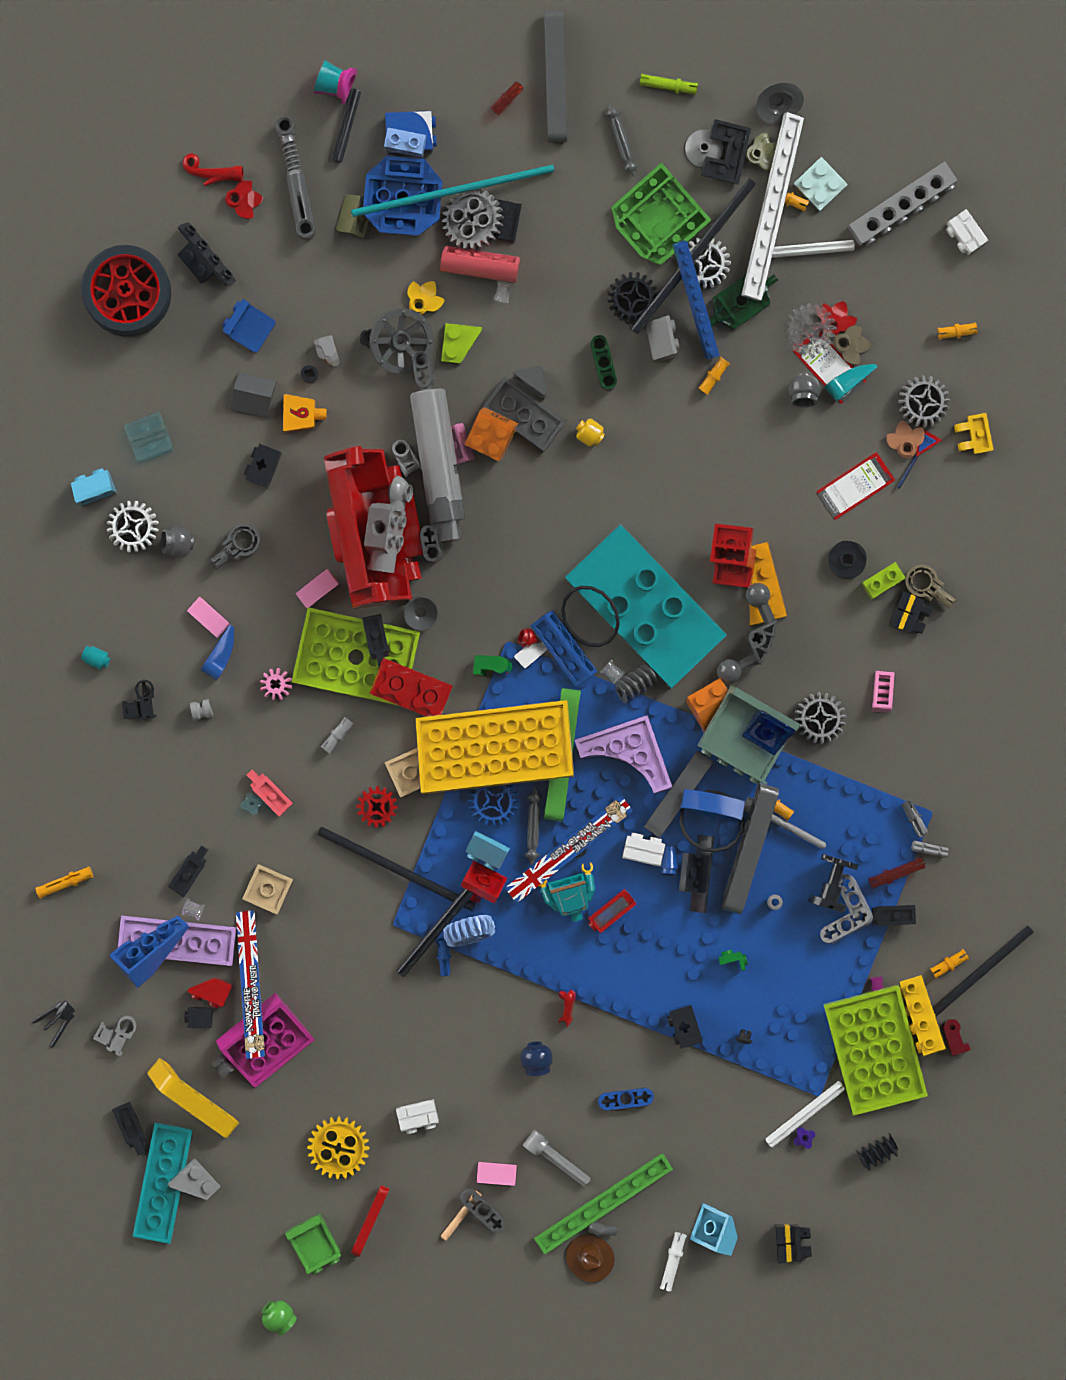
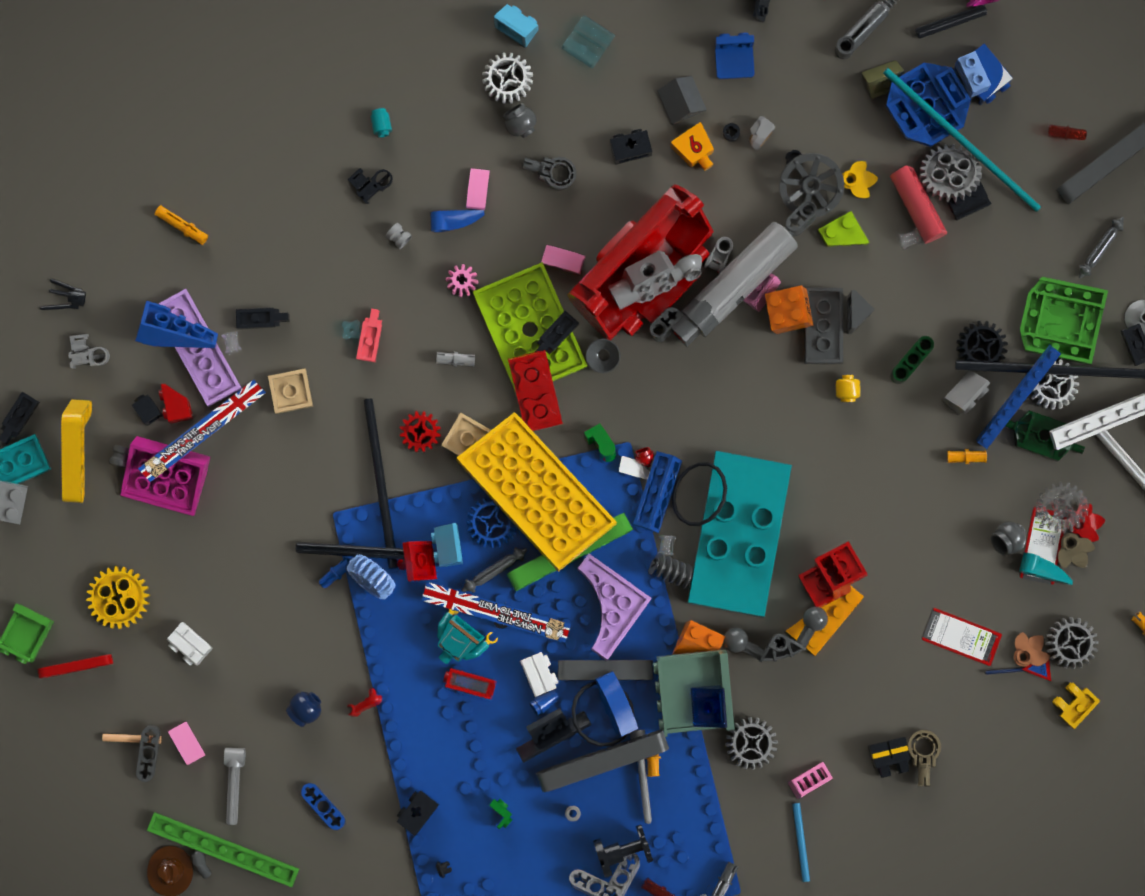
camera: 50 degrees right, 5 degrees down
(836, 558) = (906, 667): black plate -> none
(883, 580) = (901, 714): lime brick -> none
(926, 734) = (801, 842): none -> dark azure bar

